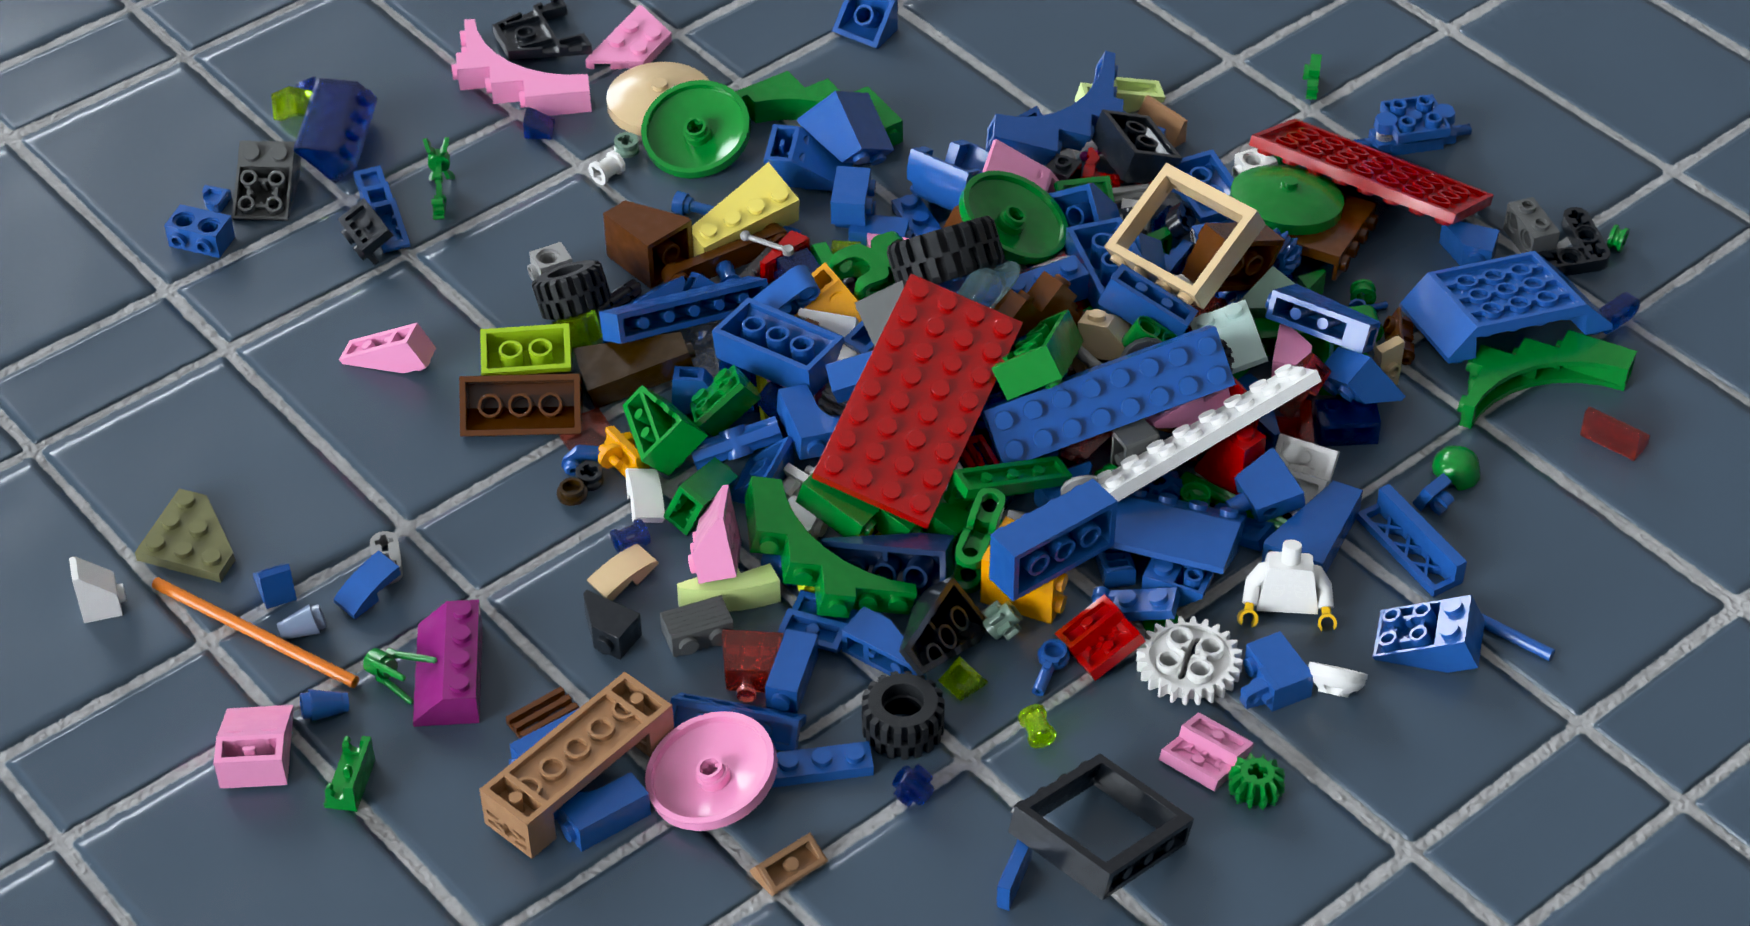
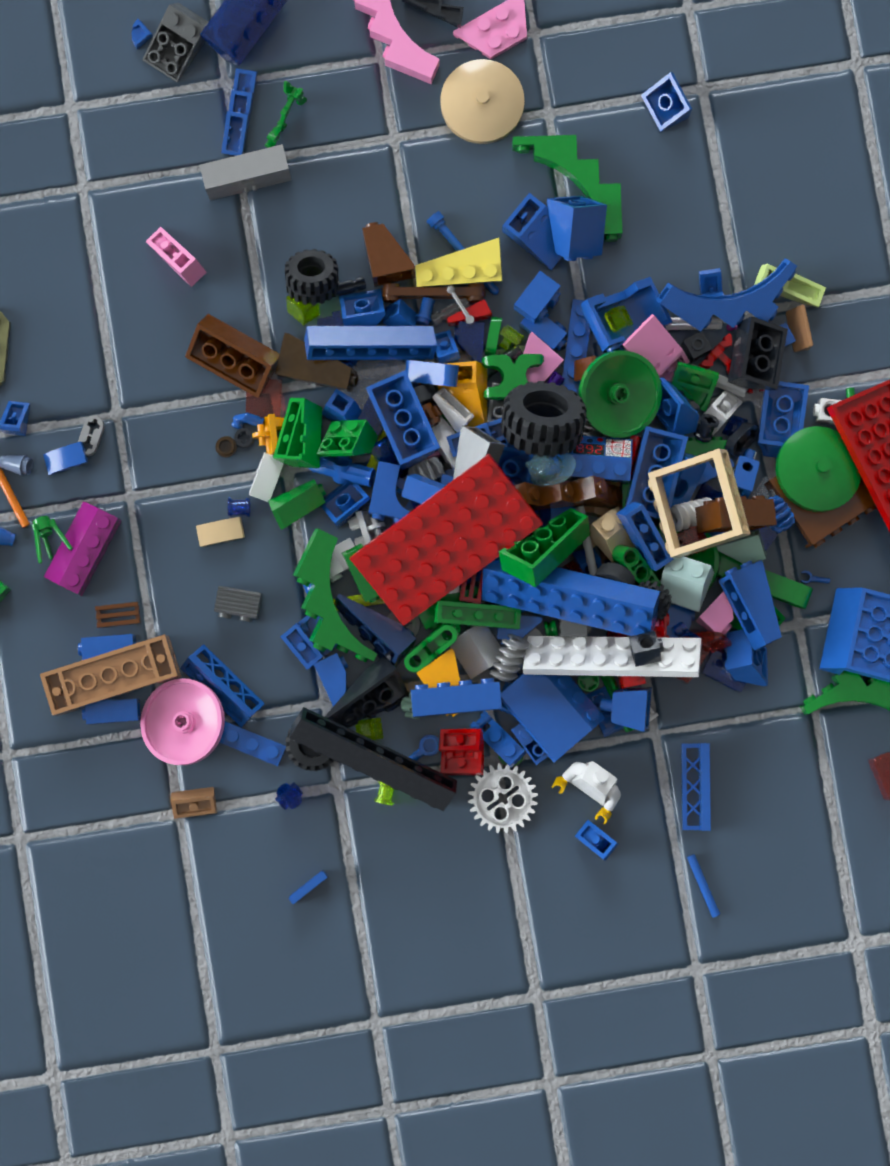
camera: 30 degrees right, 40 degrees up
(199, 231) = (115, 65): blue brick -> none
(365, 229) = (214, 134): black bracket -> none
(426, 241) = (245, 172): none -> light grey brick
(526, 350) = (254, 319): lime slope -> none
(537, 124) = (385, 82): clear blue slope -> none
(547, 259) = (323, 242): light grey brick -> none
(607, 167) = (406, 156): white bush -> none
(611, 625) = (187, 572): black slope -> none
(626, 144) = (439, 137): sand green bush -> none
(696, 129) = (481, 157): green dish -> none
(716, 541) = (277, 557): bright pink slope -> none
(746, 591) = (273, 586): yellowish green slope -> none
(749, 660) = (252, 650): clear red torso -> none
(791, 671) = (271, 670): blue brick -> none
(996, 673) = (373, 759): none -> black brick
(1074, 859) = (351, 857): black window -> none
(1205, 751) = (470, 864): bright pink slope -> none
(1237, 384) = (646, 648): none -> black brick
(1256, 781) = (474, 910): green gear -> none
(1277, 672) = (547, 837): blue hinge -> none
(1308, 463) = (670, 697): white slope -> none
(1313, 281) = (787, 542): green slope -> none
(1320, 524) = (641, 749): blue slope -> none
(1336, 679) = (580, 860): white piece -> none
(1344, 639) = (596, 840): none -> blue slope
(1365, 286) = (817, 567): green bush -> none
(1389, 357) = (780, 648): tan plate -> none
(1402, 327) = (816, 610): reddish brown hinge -> none
(1432, 635) = (653, 862): blue slope -> none
(1435, 496) = (736, 760): blue tile -> none
(1459, 465) = (768, 744): green hair -> none

